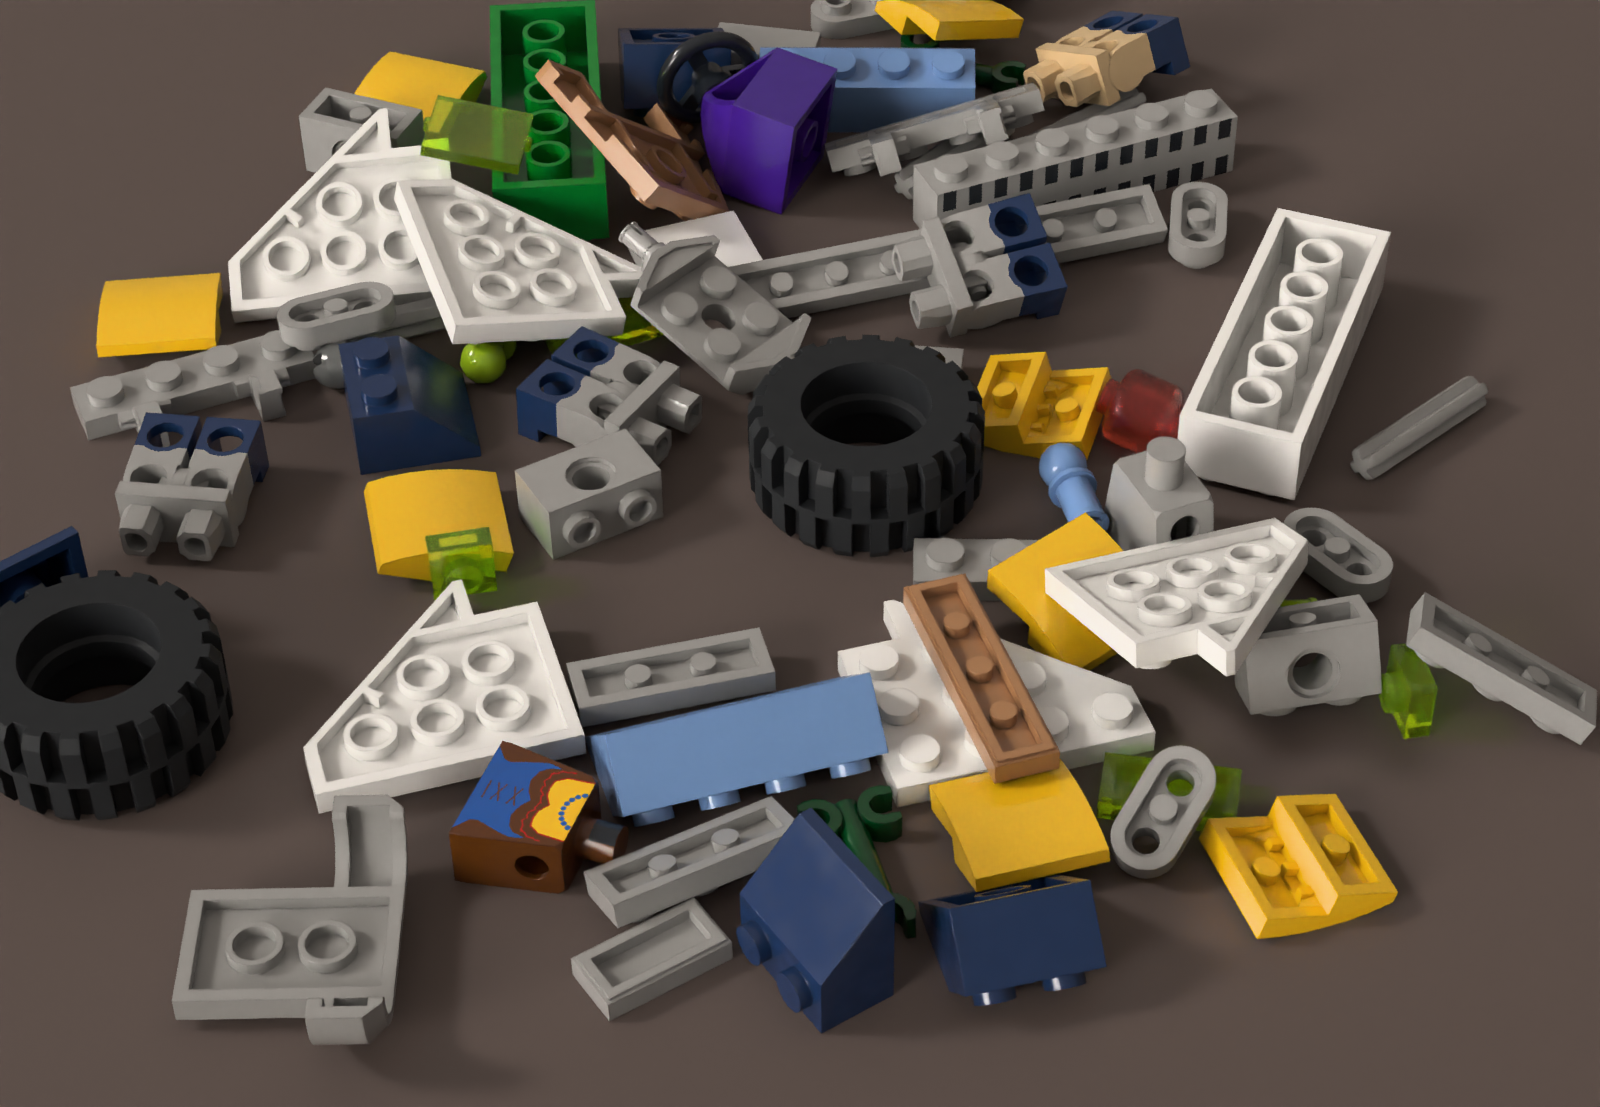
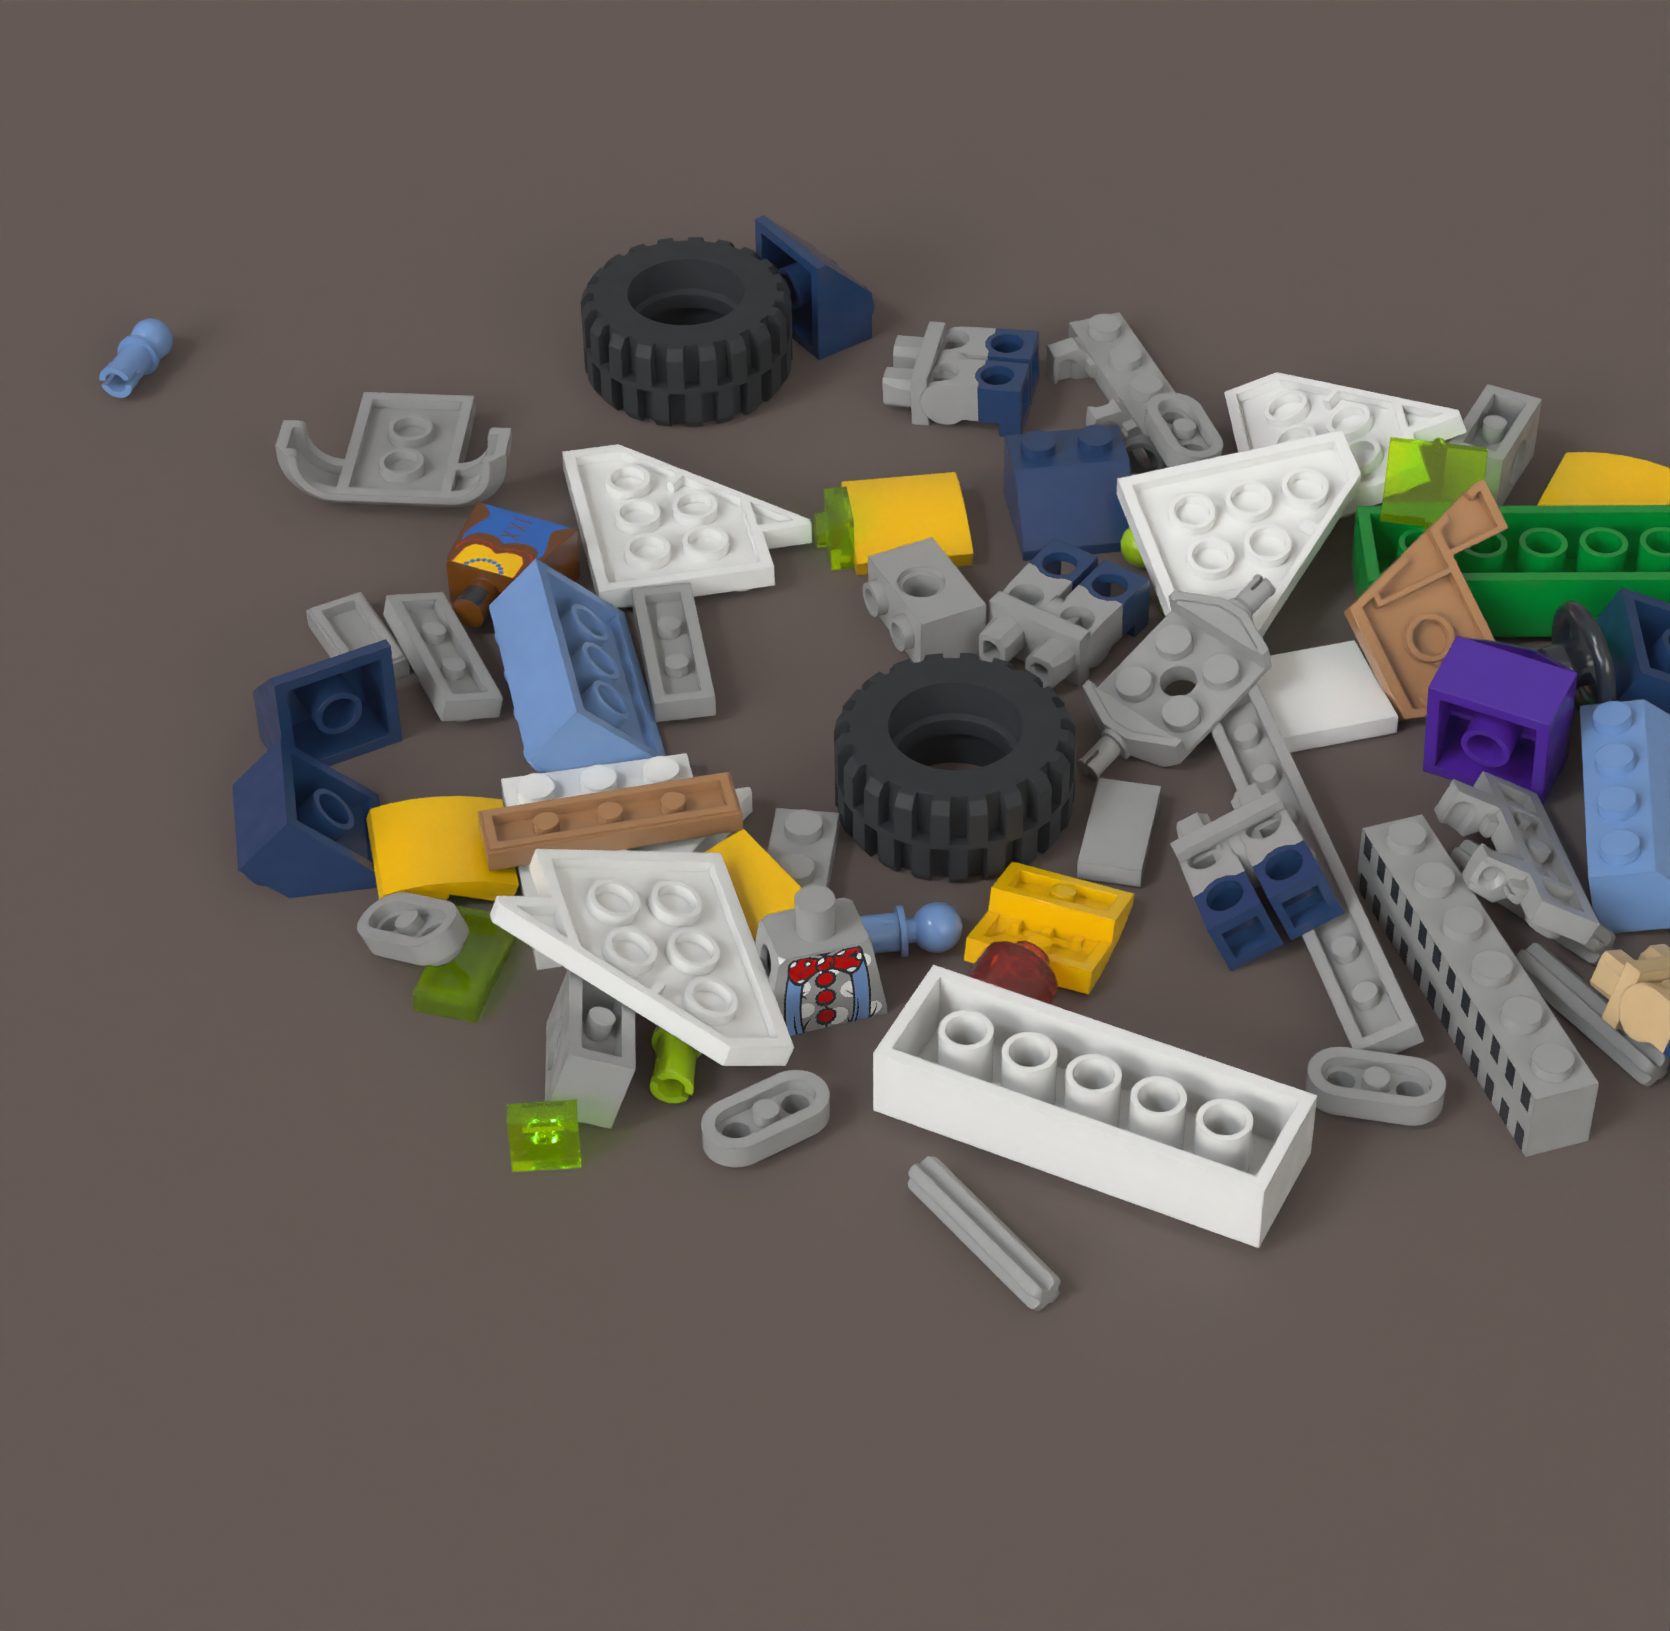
camera: 95 degrees right, 0 degrees up
(159, 315) = (1222, 352): yellow slope -> none
(857, 827) = (473, 758): dark green bar -> none
(1297, 866) = (350, 1032): yellow slope -> none
(1501, 669) = (532, 1188): light grey plate -> none

